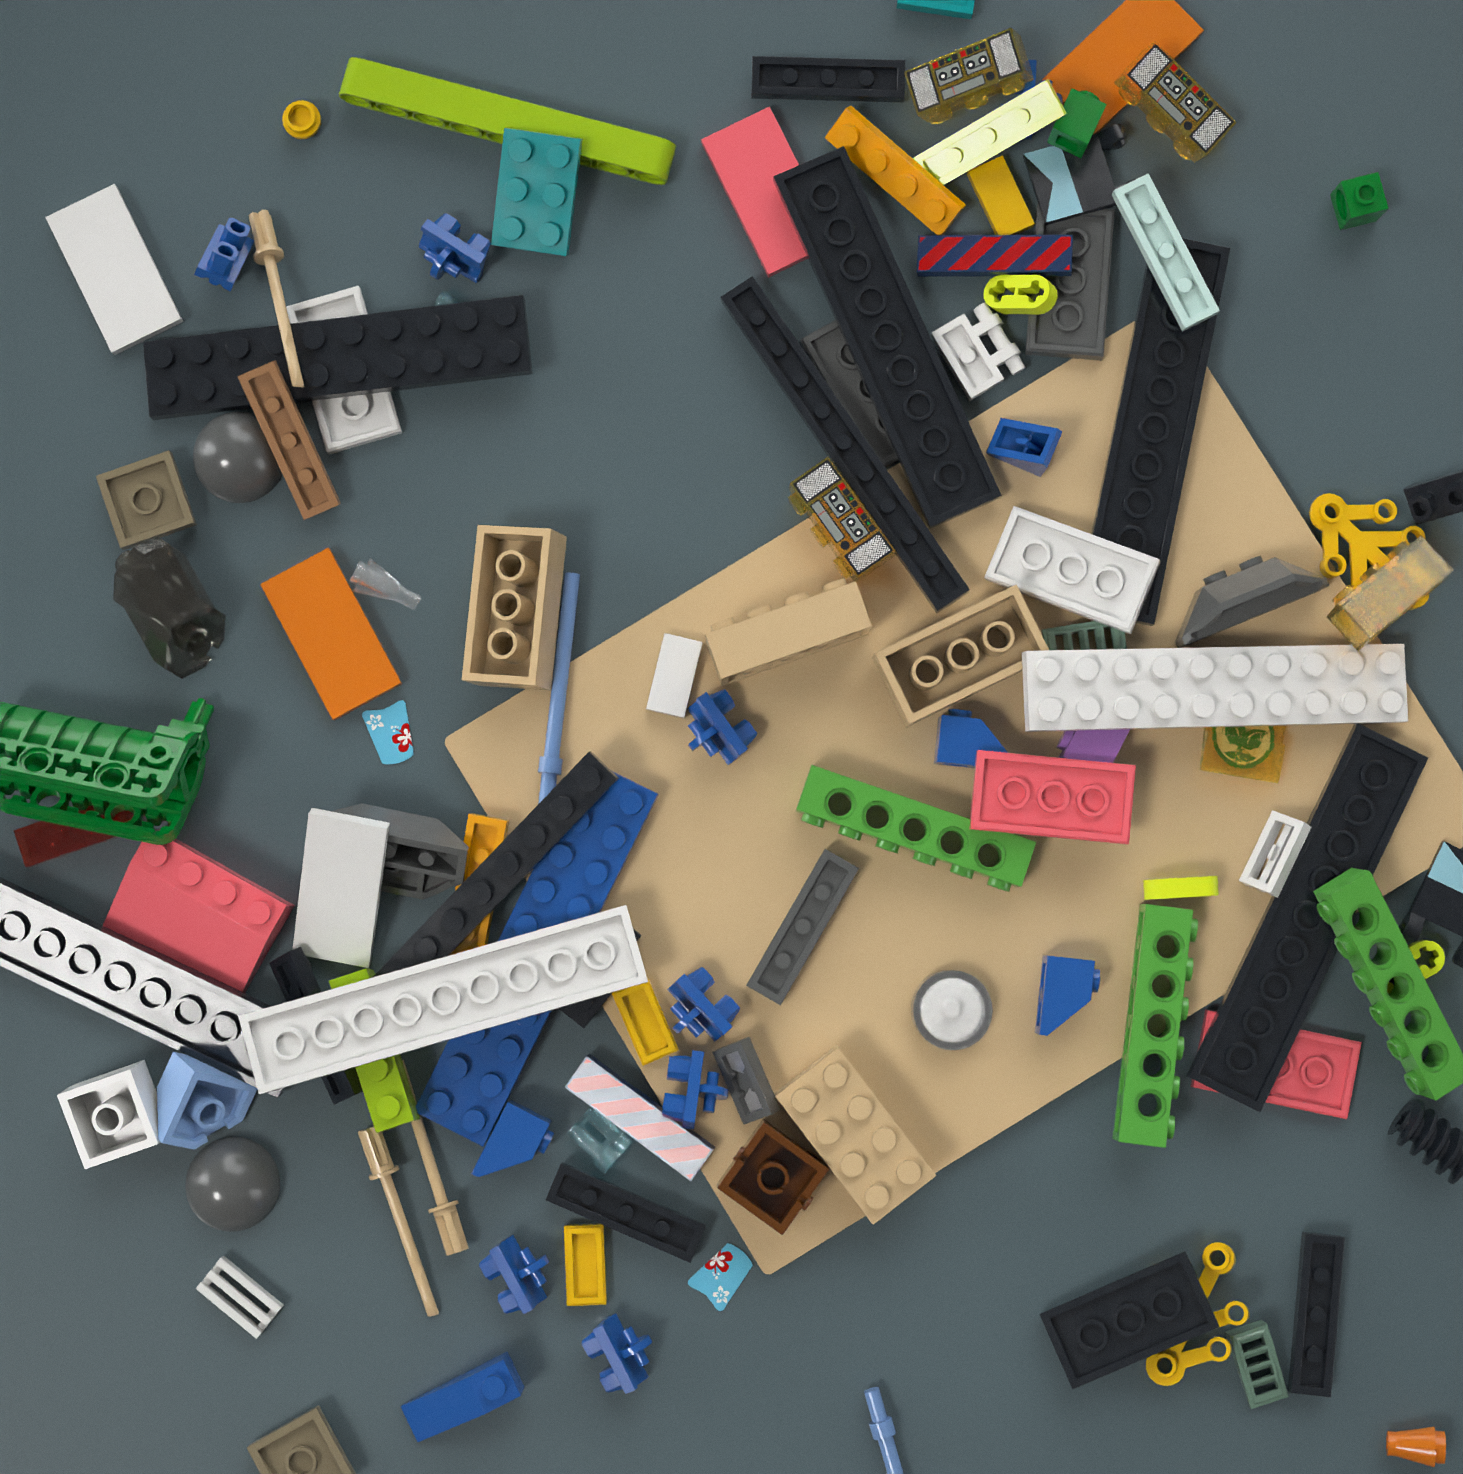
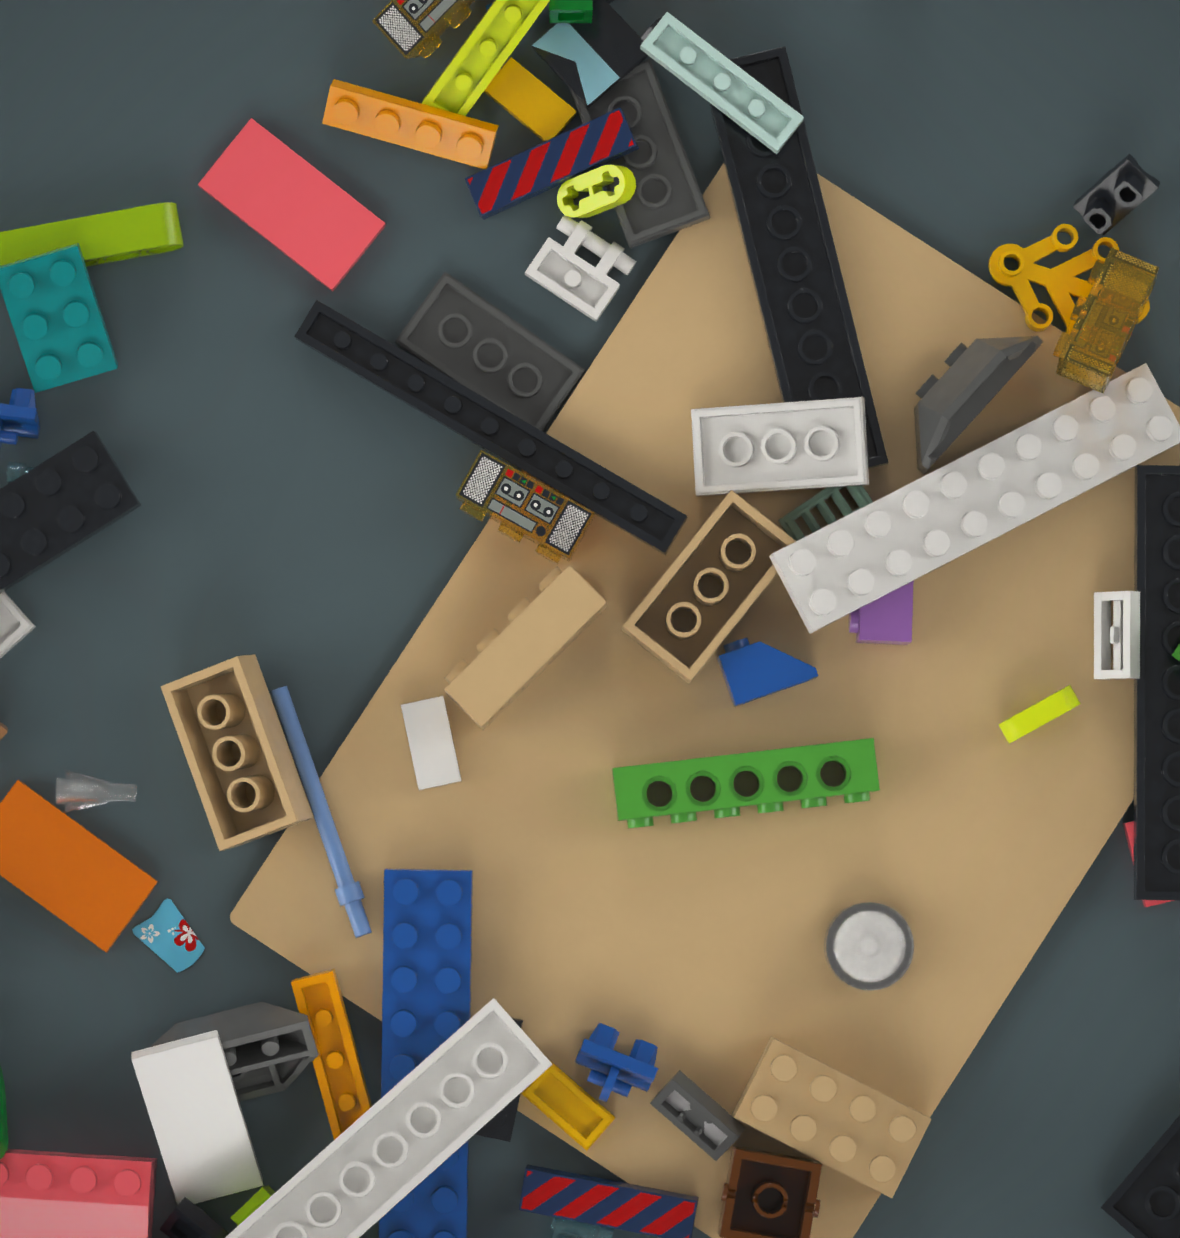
camera: 30 degrees left, 0 degrees up
(506, 865) = (353, 1016): black plate -> none
(684, 1107) = (635, 1133): blue hips -> none
(714, 730) = (497, 779): blue hips -> none
(802, 926) = (680, 934): dark grey plate -> none
(828, 79) = (297, 62): black plate -> none
(886, 337) = (482, 298): black plate -> none
(1024, 445) = (672, 343): blue slope -> none
(1052, 797) = (868, 686): coral tile -> none
(1063, 990) = (971, 872): blue slope -> none
(1158, 1126) = (1100, 974): bright green brick -> none
(1244, 751) = (1038, 547): clear yellow slope -> none

